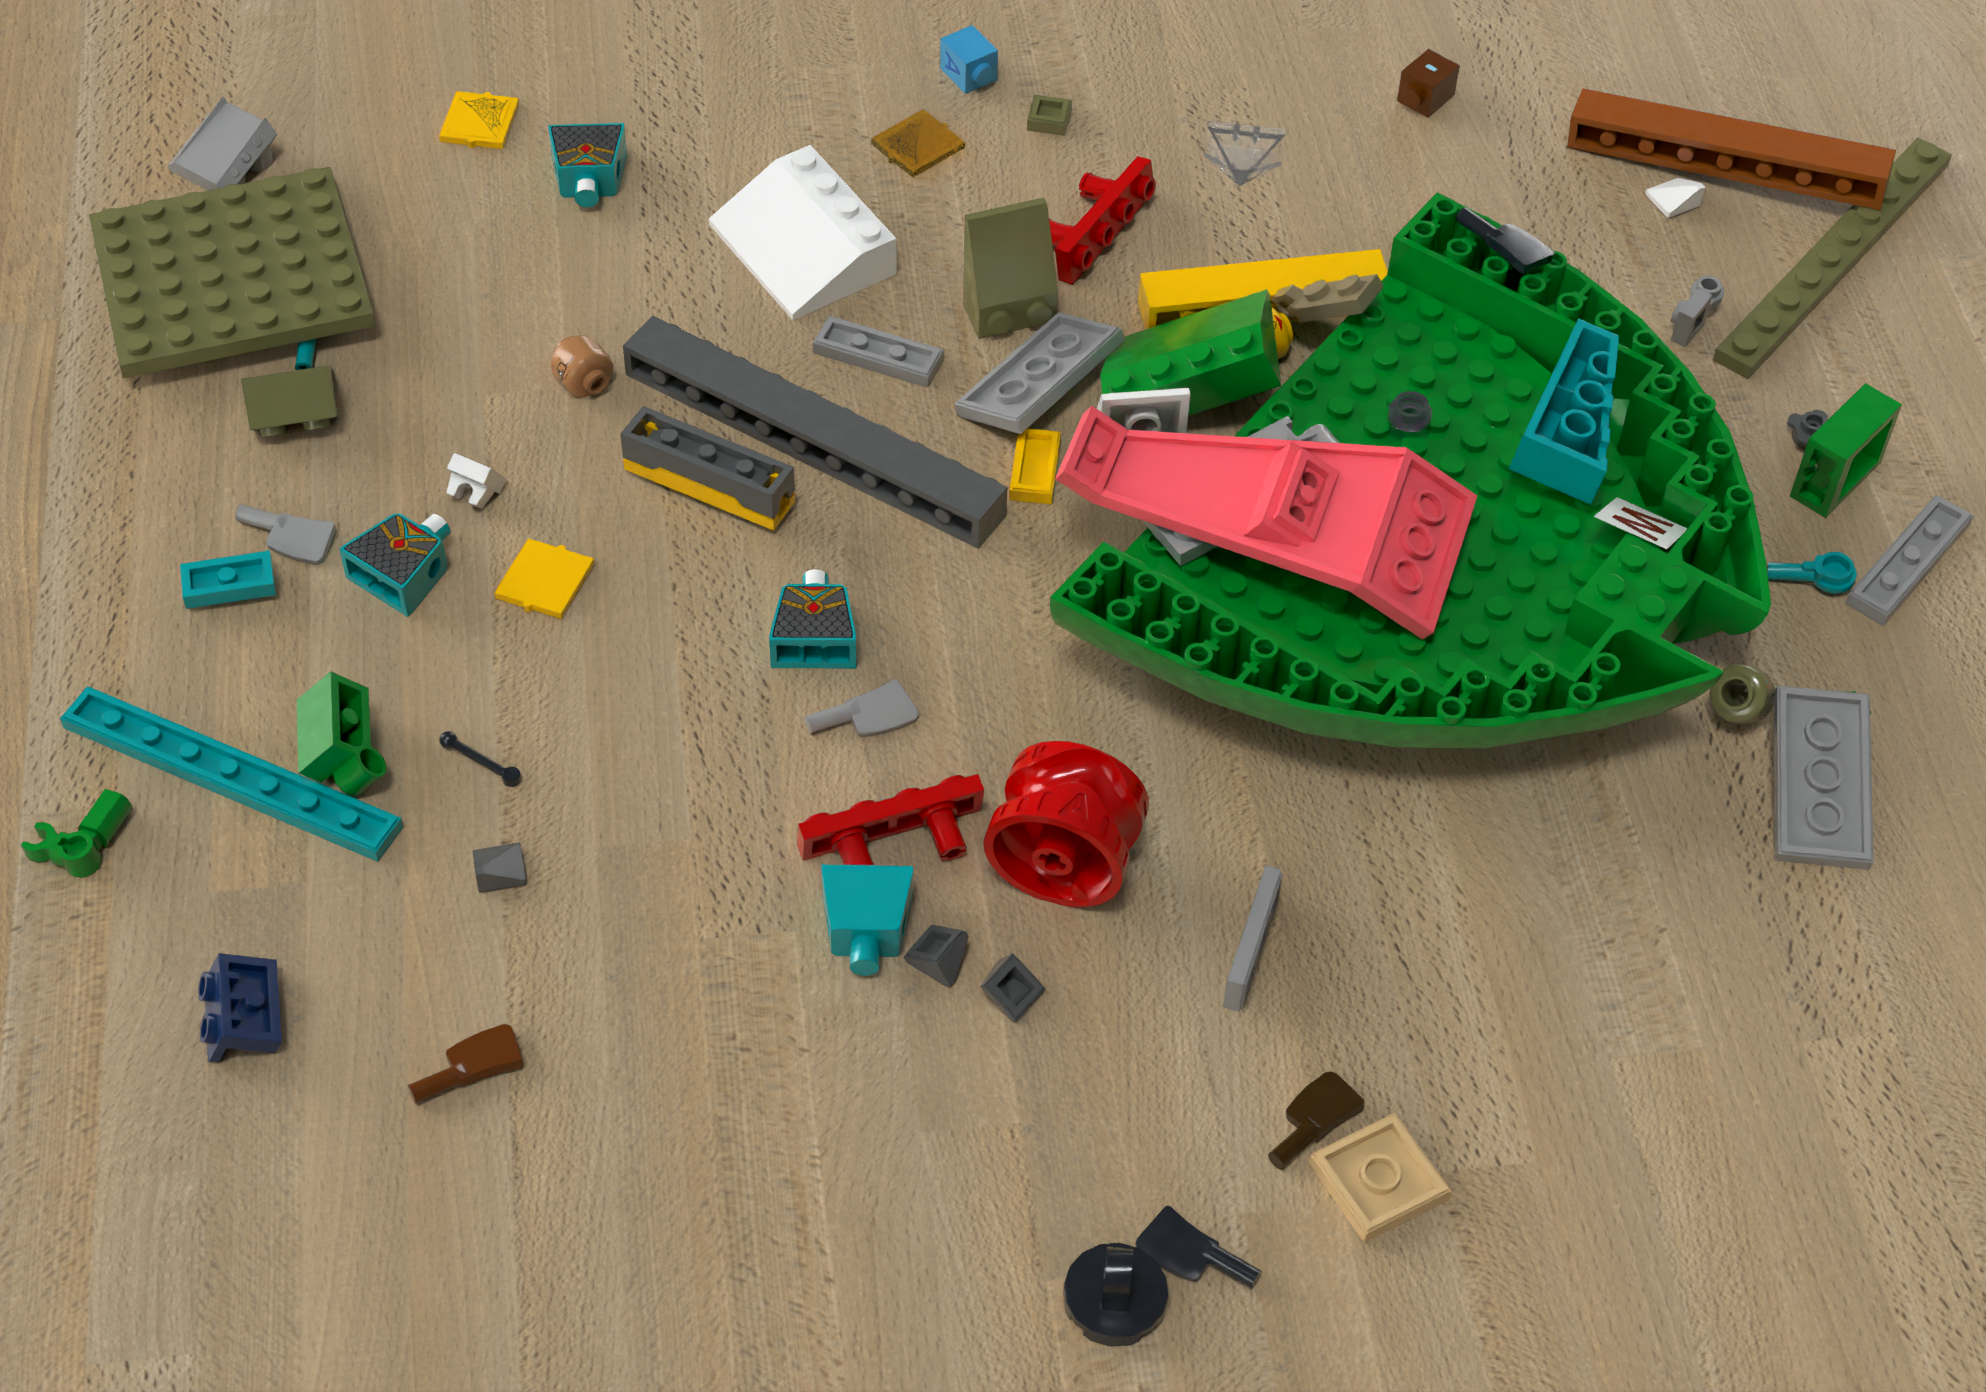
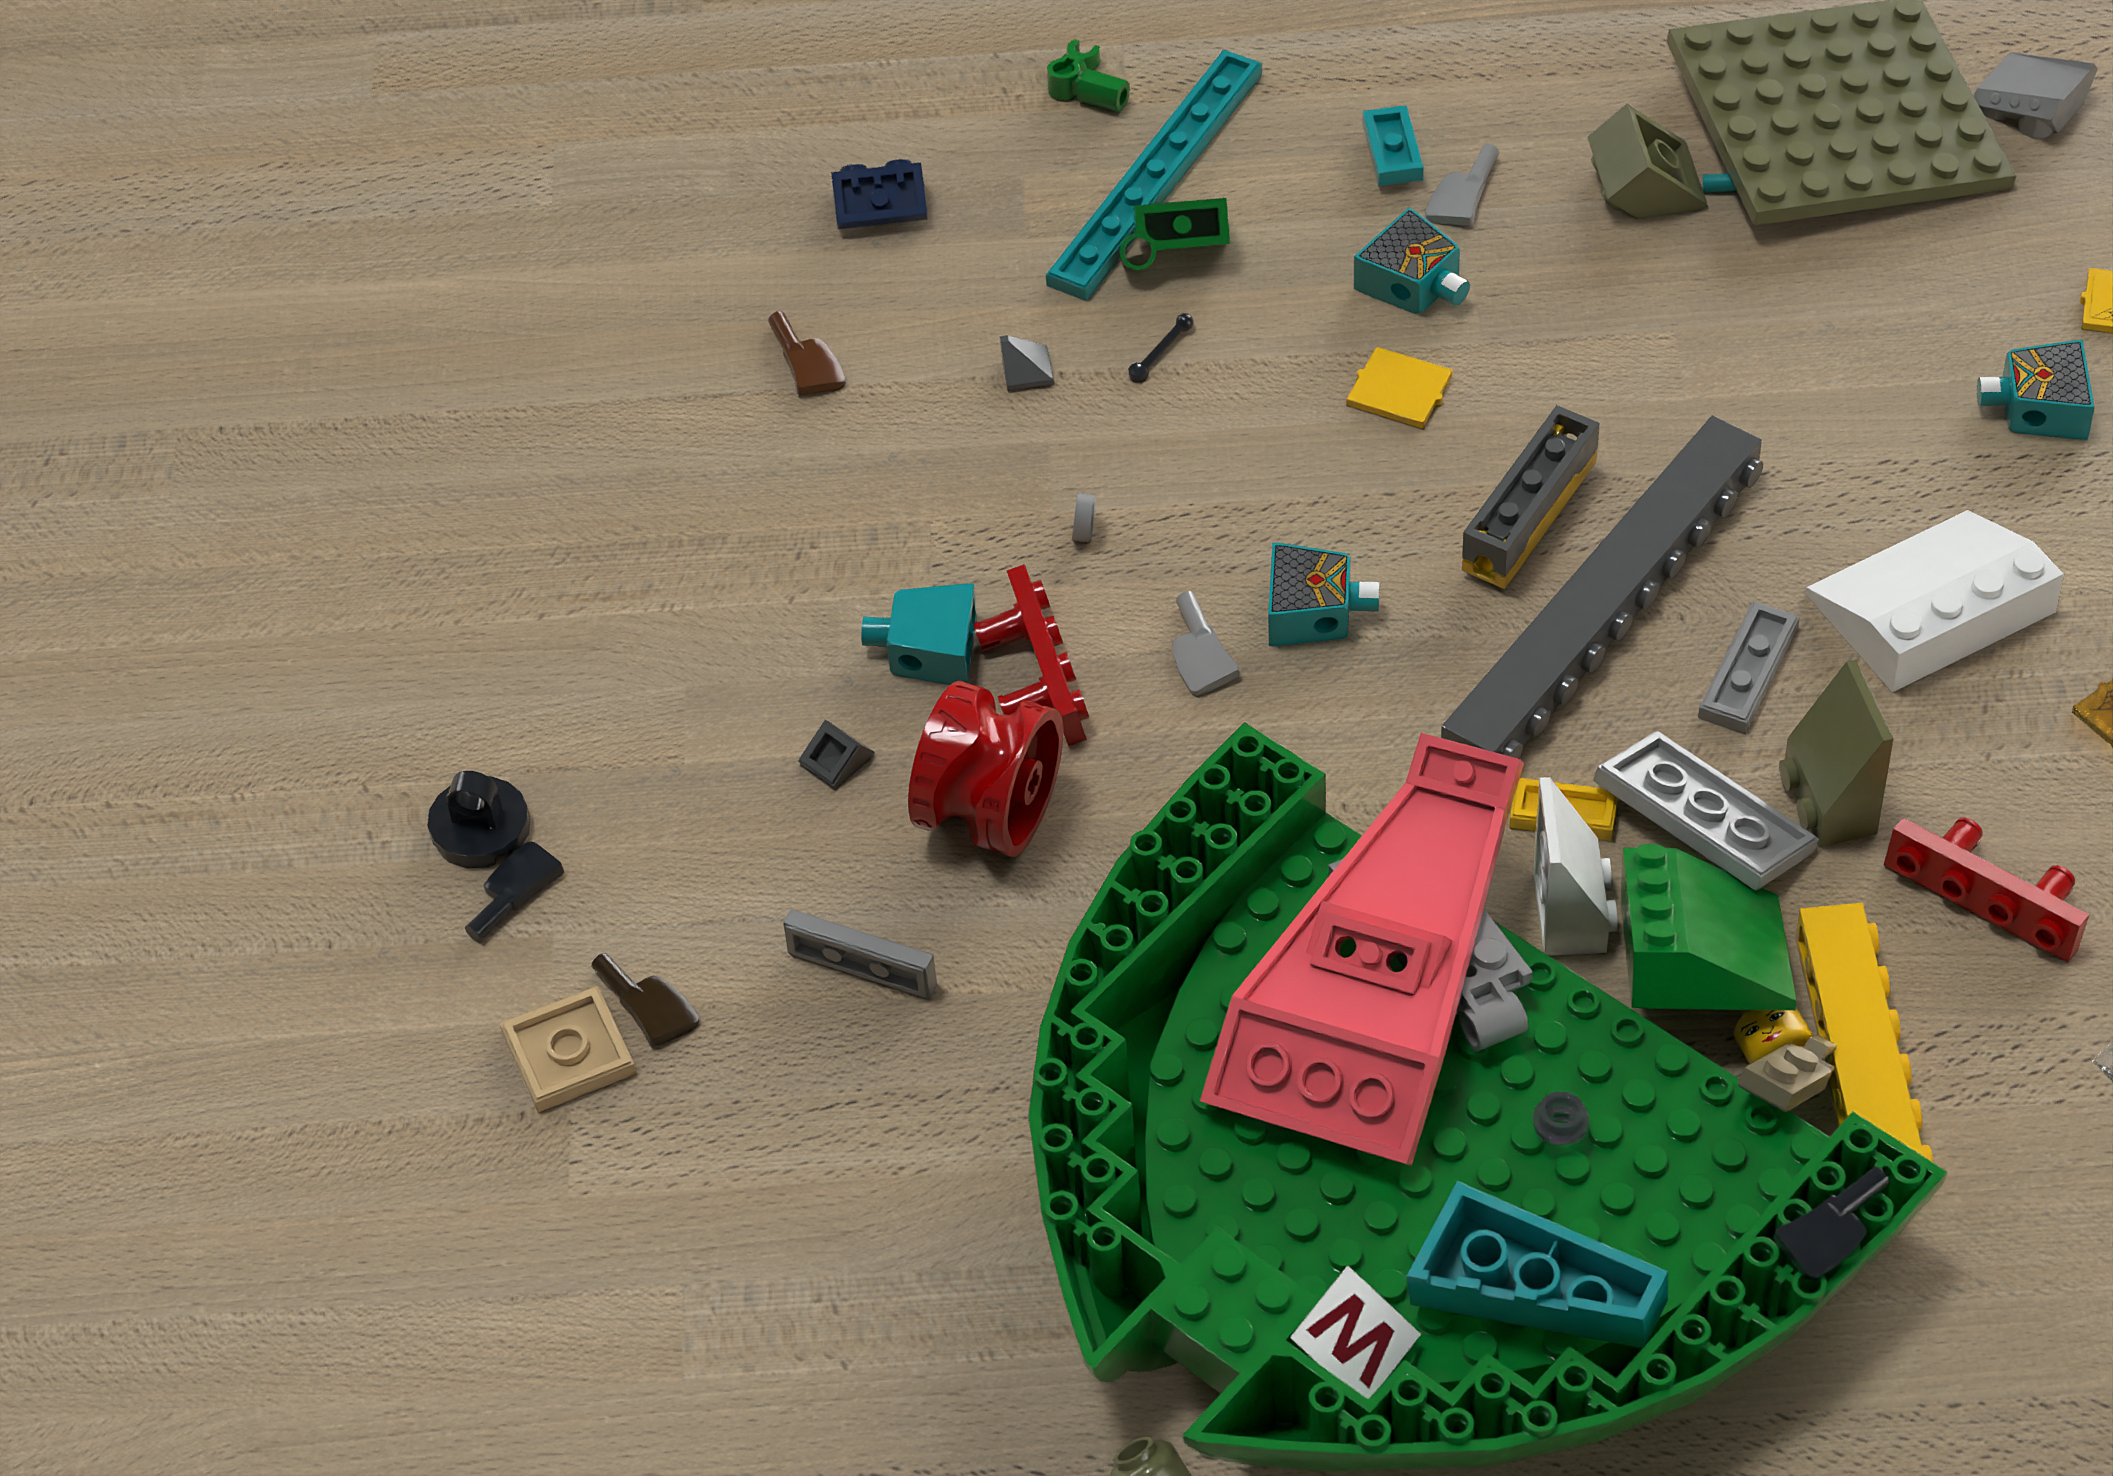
camera: 100 degrees right, 0 degrees up
(468, 474) = (1529, 318): white tile -> none
(581, 366) = (1700, 394): medium nougat head -> none
(715, 800) = (1084, 517): none -> light grey tile
(938, 953) = (881, 696): dark grey slope -> none

